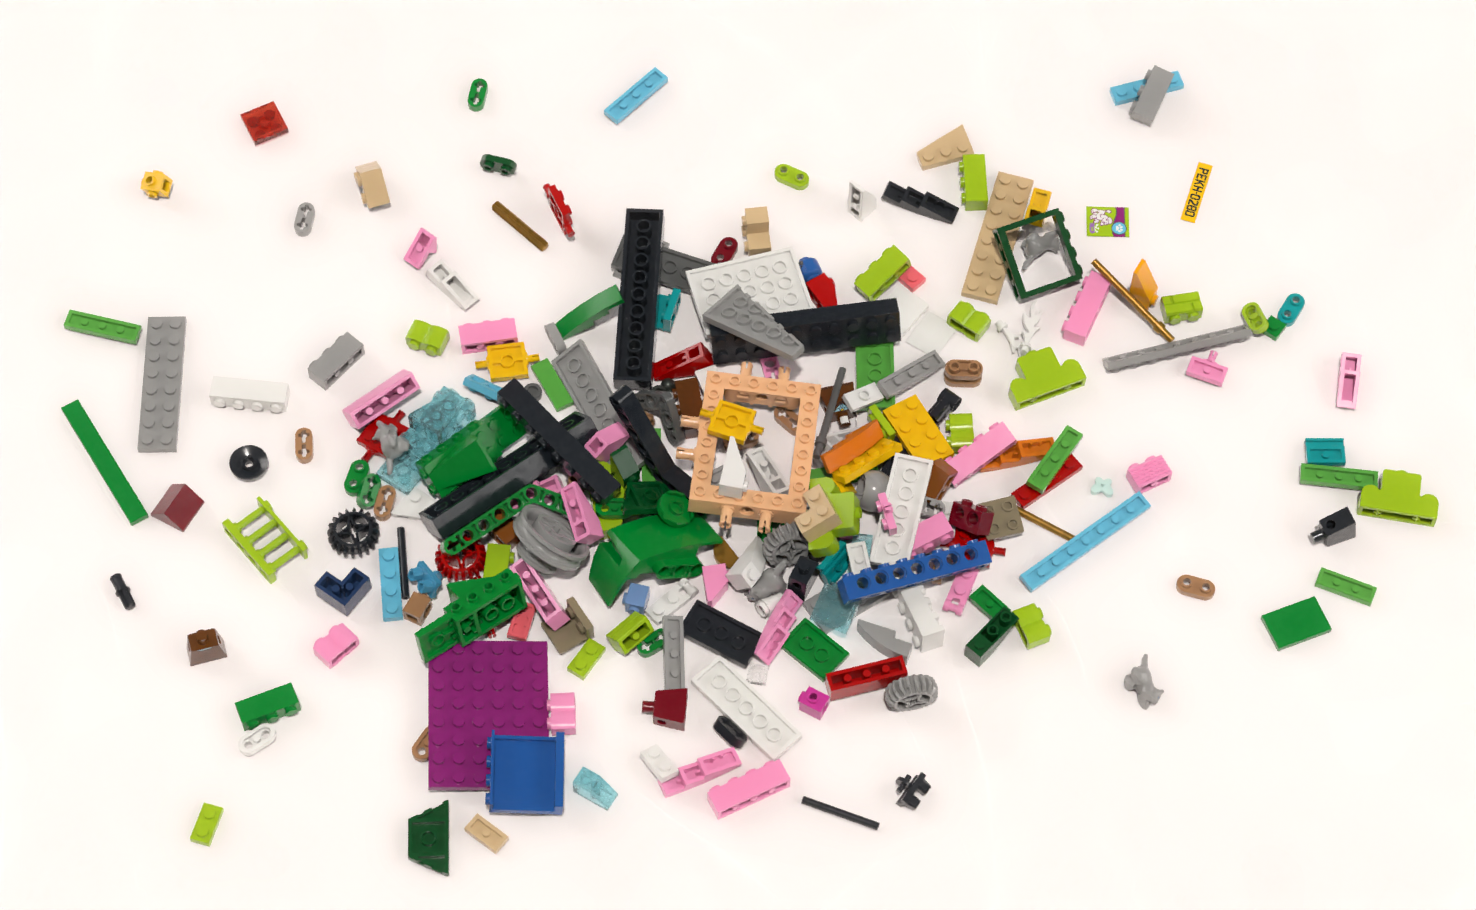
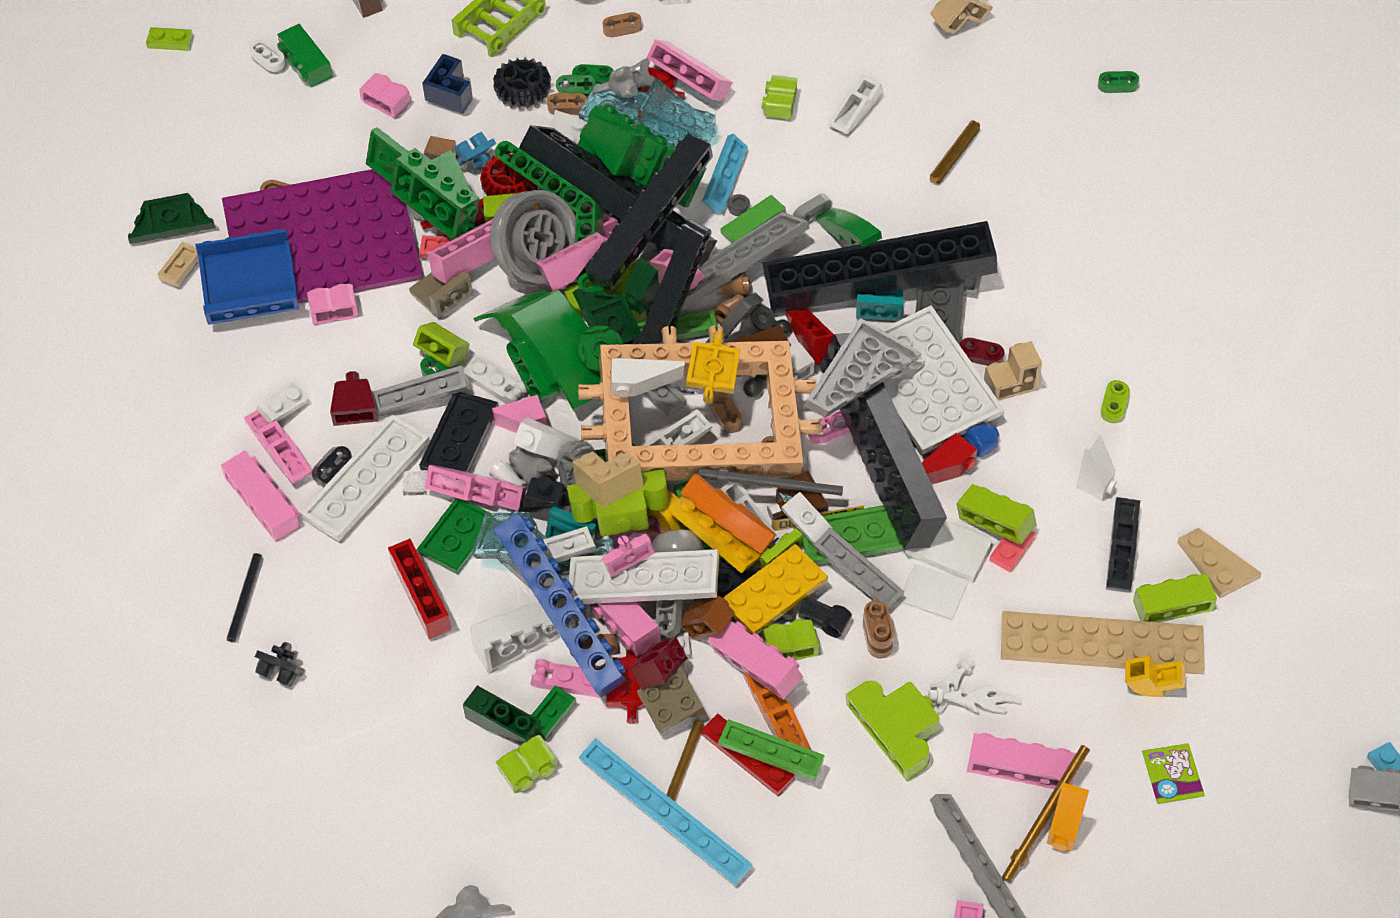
camera: 80 degrees right, 5 degrees down
(336, 360) = (730, 27): light grey brick -> none
(390, 584) = (464, 129): medium azure plate -> none
(403, 563) = (503, 132): black piece -> none
(420, 248) = (892, 66): bright pink slope -> none
(479, 335) = (798, 148): bright pink brick -> none
(498, 164) = (1027, 108): dark green plate -> none
(507, 361) = (770, 172): yellow plate -> none
(560, 210) = (980, 175): red plate -> none
(586, 659) = (406, 315): lime plate -> none
(594, 788) = (243, 348): clear light blue slope -> none
(636, 95) = (1172, 224): medium azure plate -> none
(636, 598) = (488, 345): medium blue brick -> none
(724, 554) = (569, 420): pearl gold tile -> none
(813, 702) = (379, 539): dark pink brick -> none
(884, 640) = (476, 603): light grey slope -> none
(911, 692) = (403, 637): light grey gear -> none
(968, 321) = (960, 624): lime brick -> none
(1010, 263) = (1053, 648): dark green window -> none
(1036, 245) = (1099, 684): light grey animal -> none
(1102, 486) = (755, 823): light aqua piece -> none
(1148, 474) = (783, 874): bright pink brick -> none
(1181, 307) = (1058, 881): lime brick -> none
(1196, 192) = (1261, 881): yellow sticker -> none

